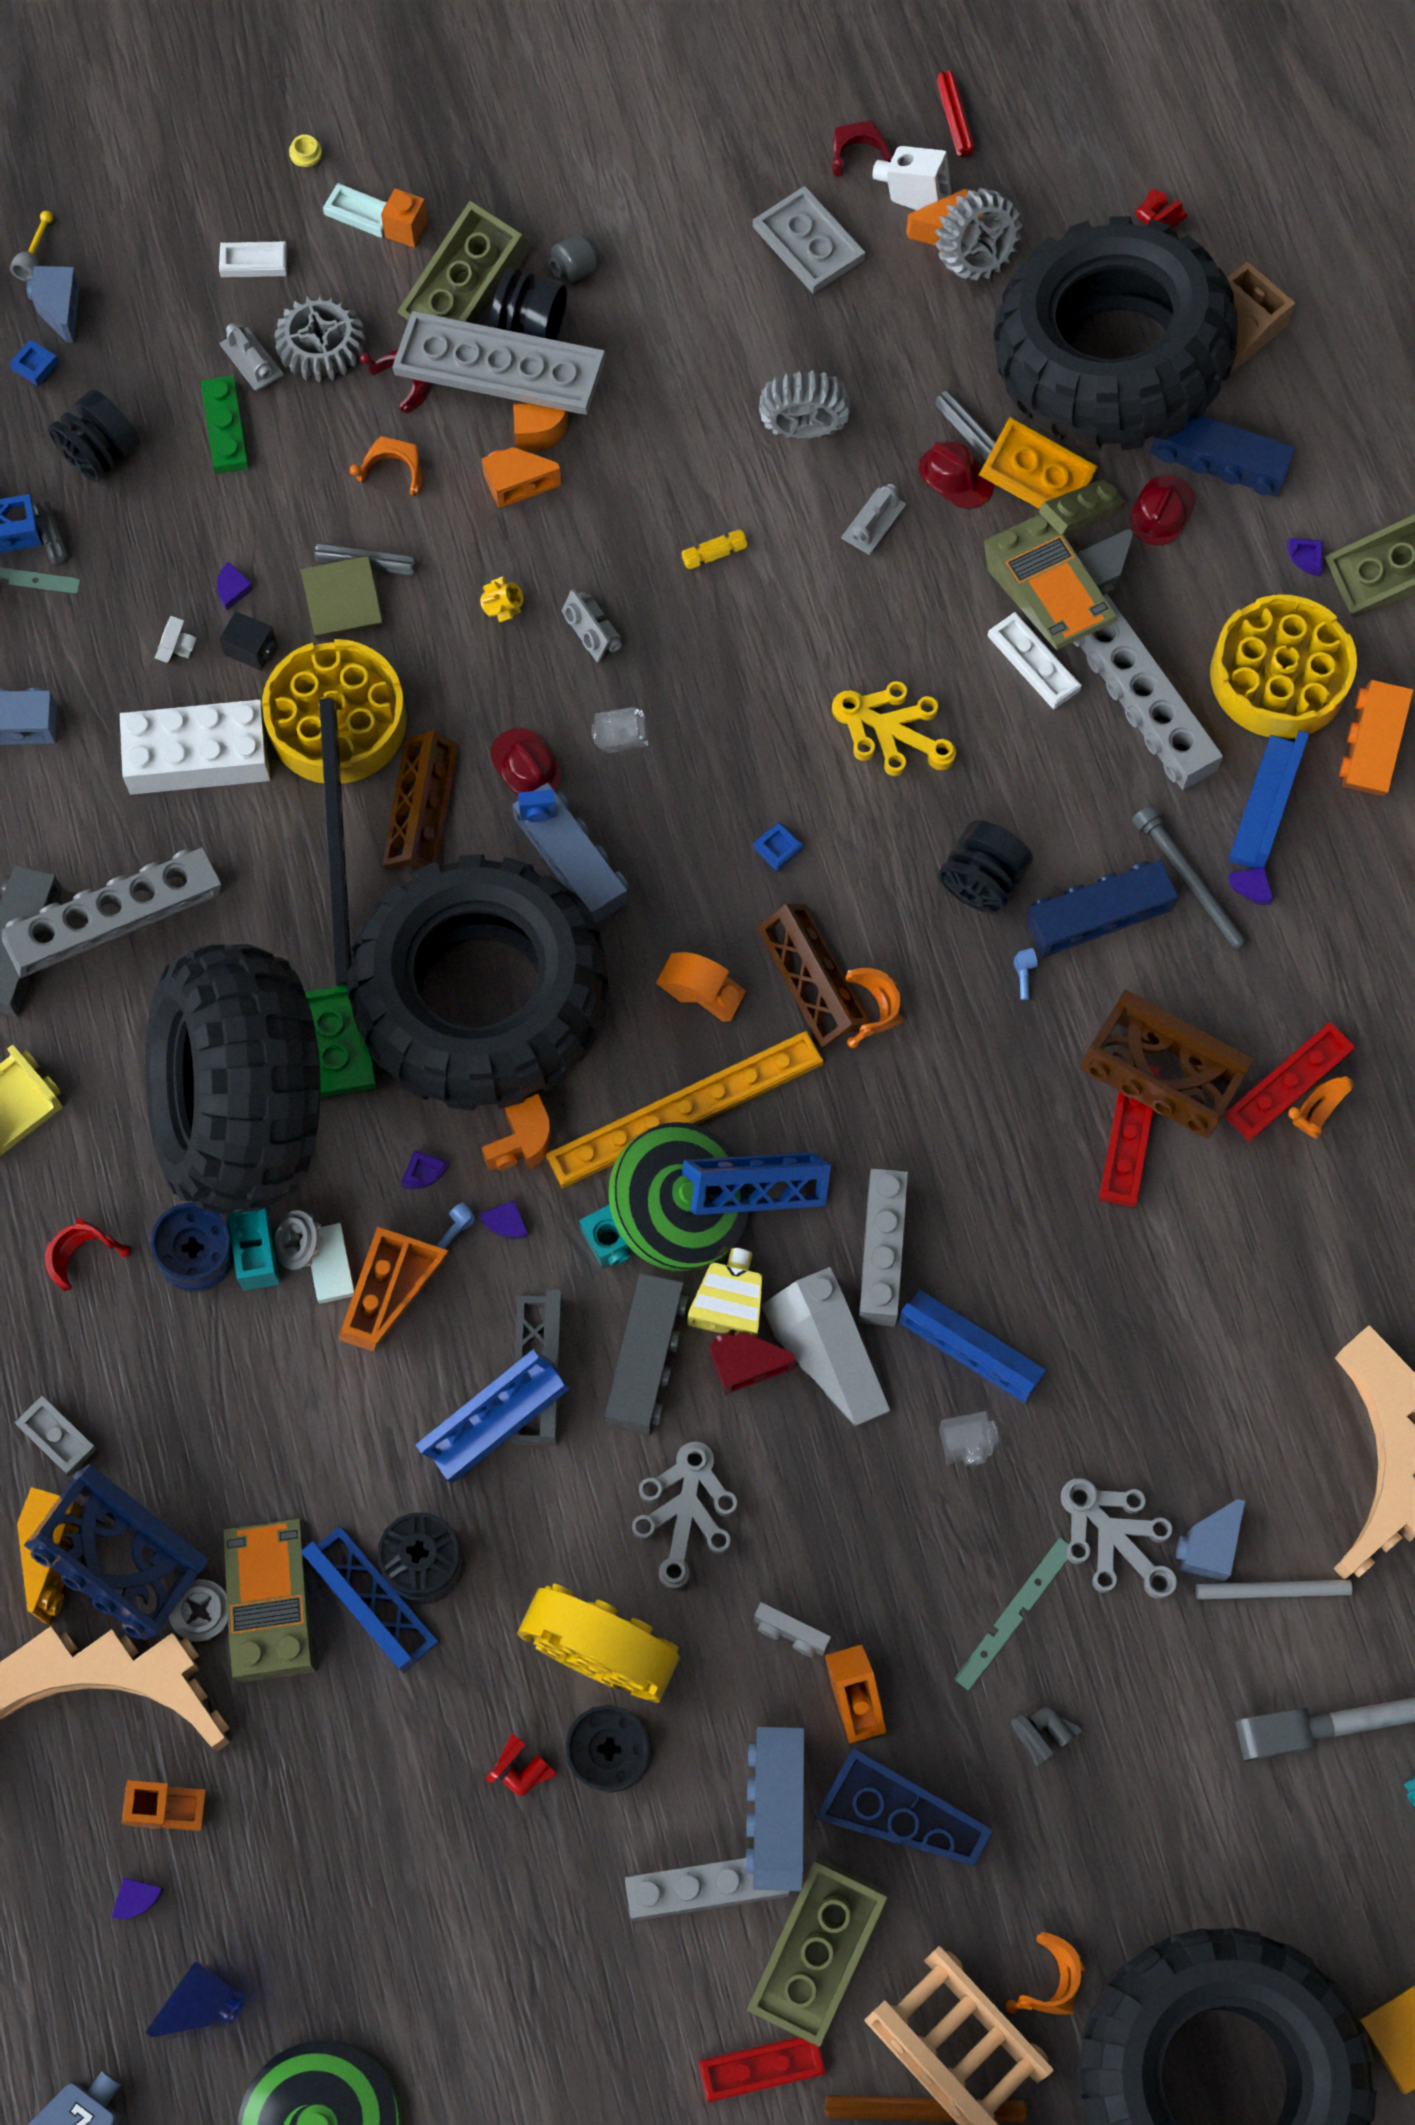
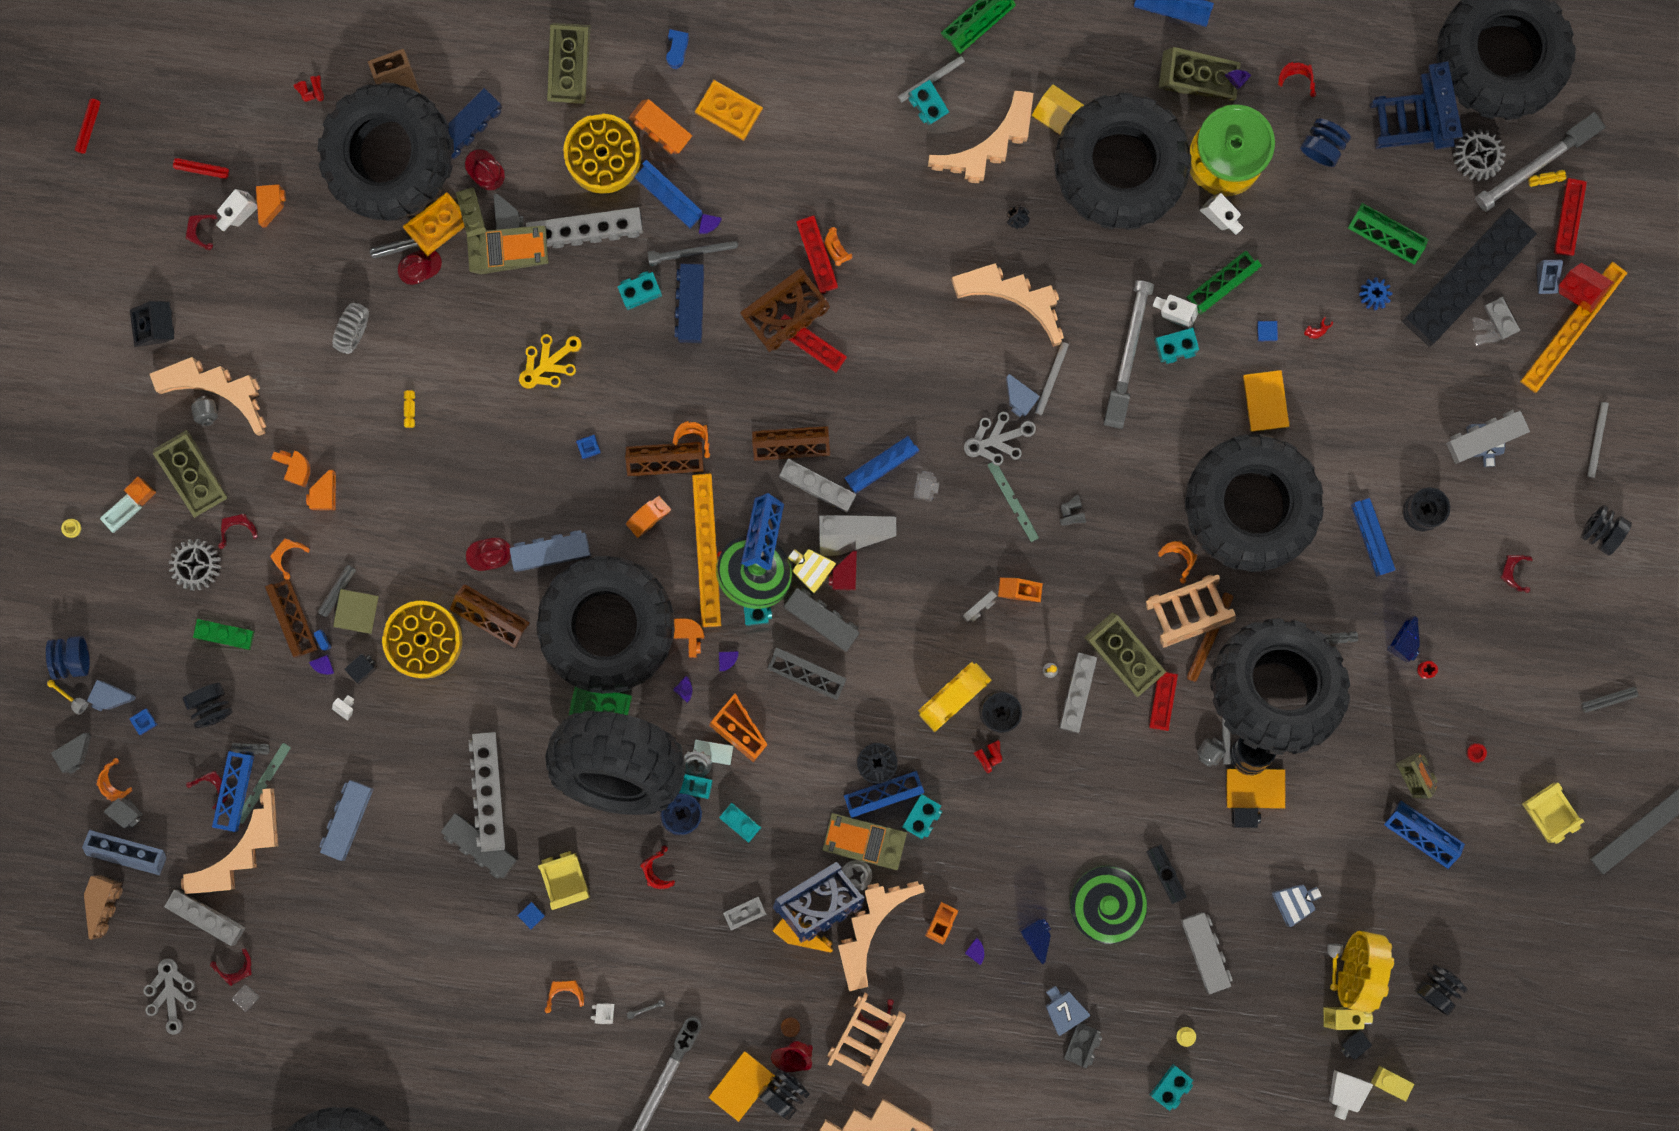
camera: 65 degrees left, 15 degrees up
(93, 214) = (67, 657): none -> dark blue wheel
(194, 747) = (410, 718): white brick -> none
(218, 1359) = (740, 822): none -> teal brick
(250, 357) = (189, 605): light grey hinge -> none
(253, 259) = (127, 581): white tile -> none
(272, 566) = (322, 640): none -> blue tile
(281, 499) = (286, 625): none -> reddish brown fence
(335, 840) = (499, 666): black tile -> none
(356, 1676) = (918, 814): none -> teal brick
(463, 1220) = (717, 679): medium blue hand -> none
(493, 1415) = (824, 702): blue fence -> none
(499, 362) = (257, 477): light grey plate -> none
(501, 599) = (393, 530): yellow gear -> none
(529, 308) = (229, 448): black wheel -> none
(537, 805) = (523, 559): blue plate -> none
(582, 614) = (417, 492): light grey hinge -> none
(619, 730) = (494, 500): clear brick -> none
(623, 219) = (188, 376): none -> light nougat arch
(679, 137) = (152, 323): none -> black slope
(685, 1507) = (902, 631): light grey plant -> none
(726, 1814) = (1052, 670): none -> light grey hinge
(778, 1809) = (1058, 646): sand blue brick -> none
(808, 239) = (246, 281): light grey plate -> none
(874, 519) = (428, 320): light grey hinge -> none
(890, 1807) = (1077, 596): dark blue wedge -> none
(948, 1168) = (790, 439): none -> reddish brown fence
(962, 234) = (288, 192): light grey gear -> none
(985, 867) = (650, 354): black wheel -> none
(1023, 961) = (701, 354): medium blue hand -> none
(1034, 660) = (541, 274): white tile -> none
(1075, 823) = (641, 295): none -> teal brick
(1306, 555) = (542, 109): dark purple tile -> none

